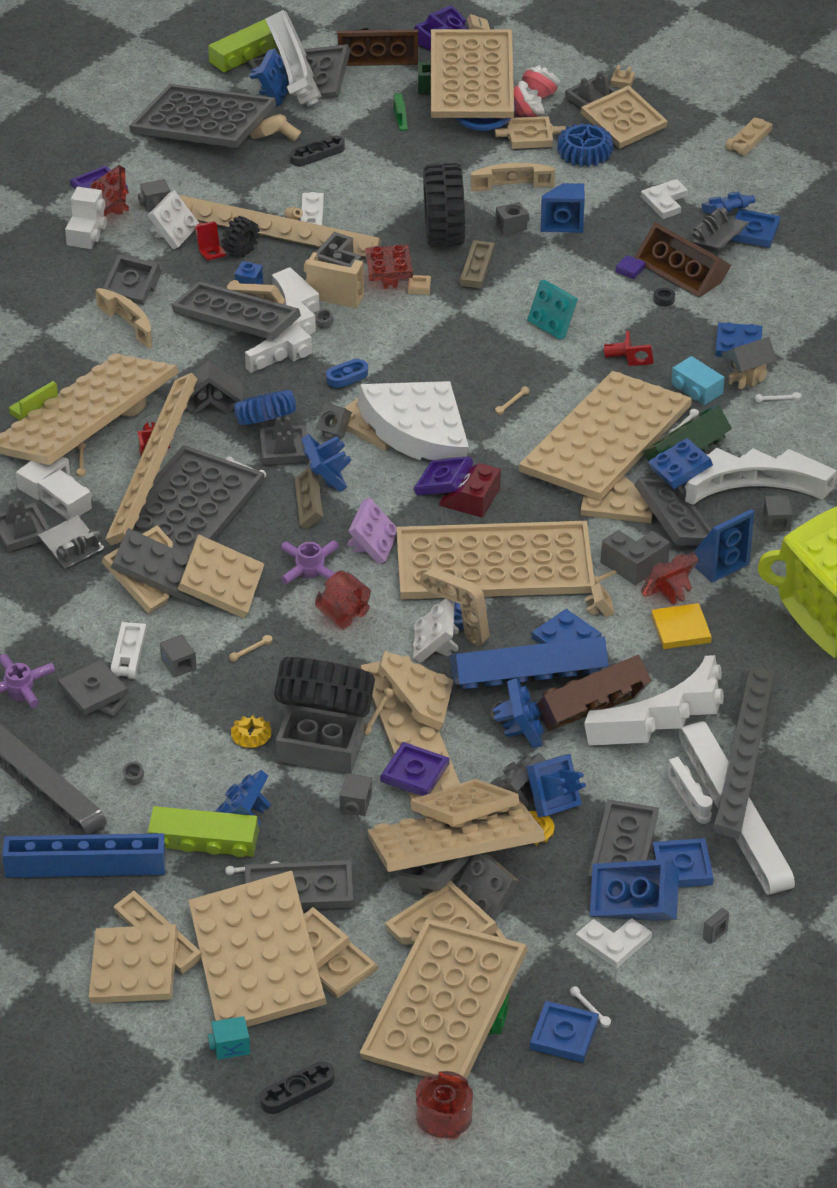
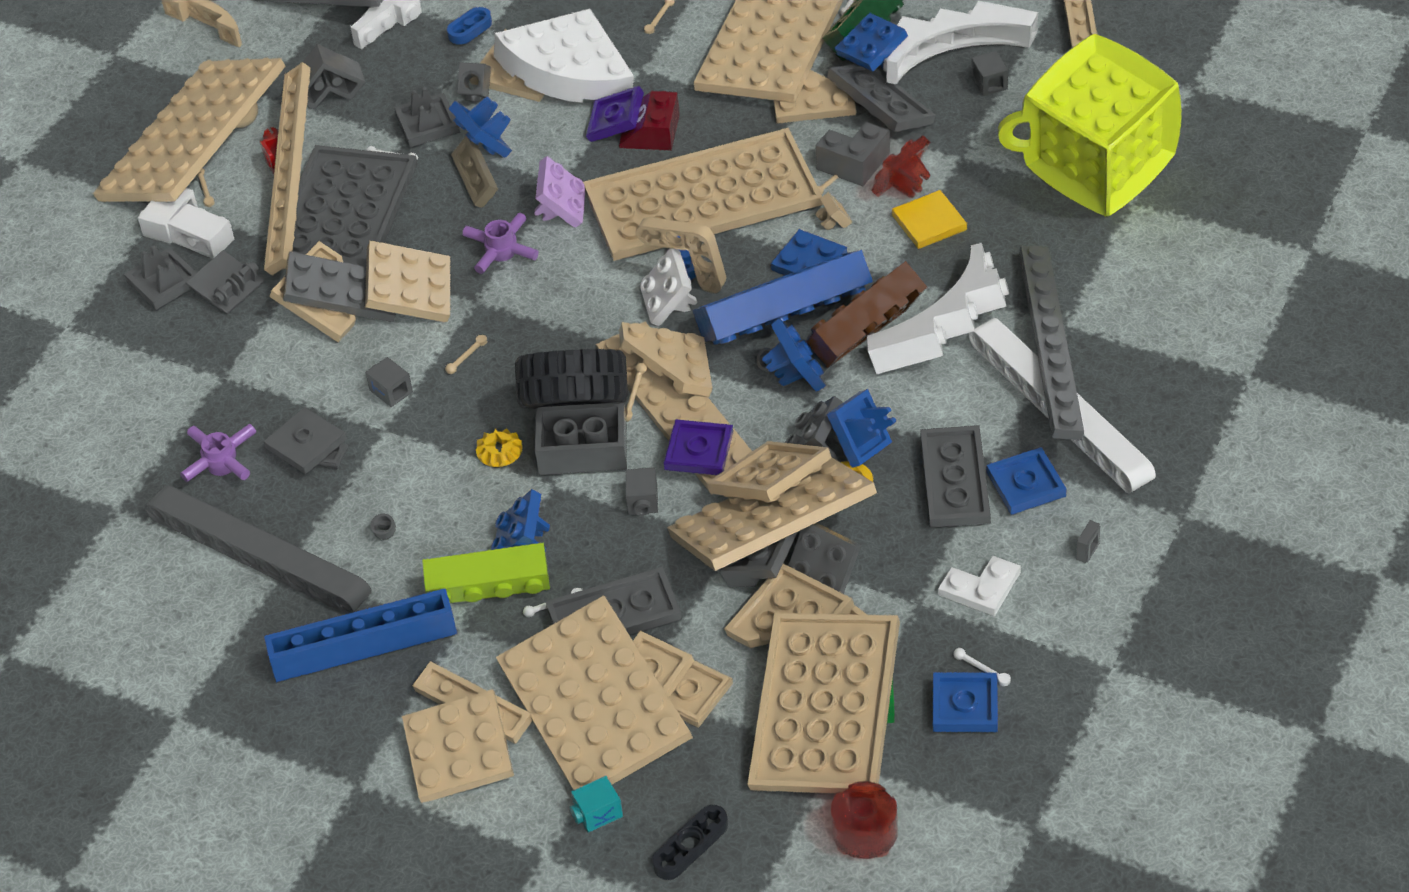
camera: 10 degrees left, 5 degrees up
(33, 401) = (130, 134): lime panel -> none
(128, 649) = (330, 387): white plate -> none
(265, 407) = (394, 82): blue gear -> none
(343, 598) = (554, 275): clear red brick -> none
(635, 890) = (987, 524): blue slope -> none
(690, 791) = (1005, 399): white plate -> none
(726, 547) = (952, 122): blue slope -> none

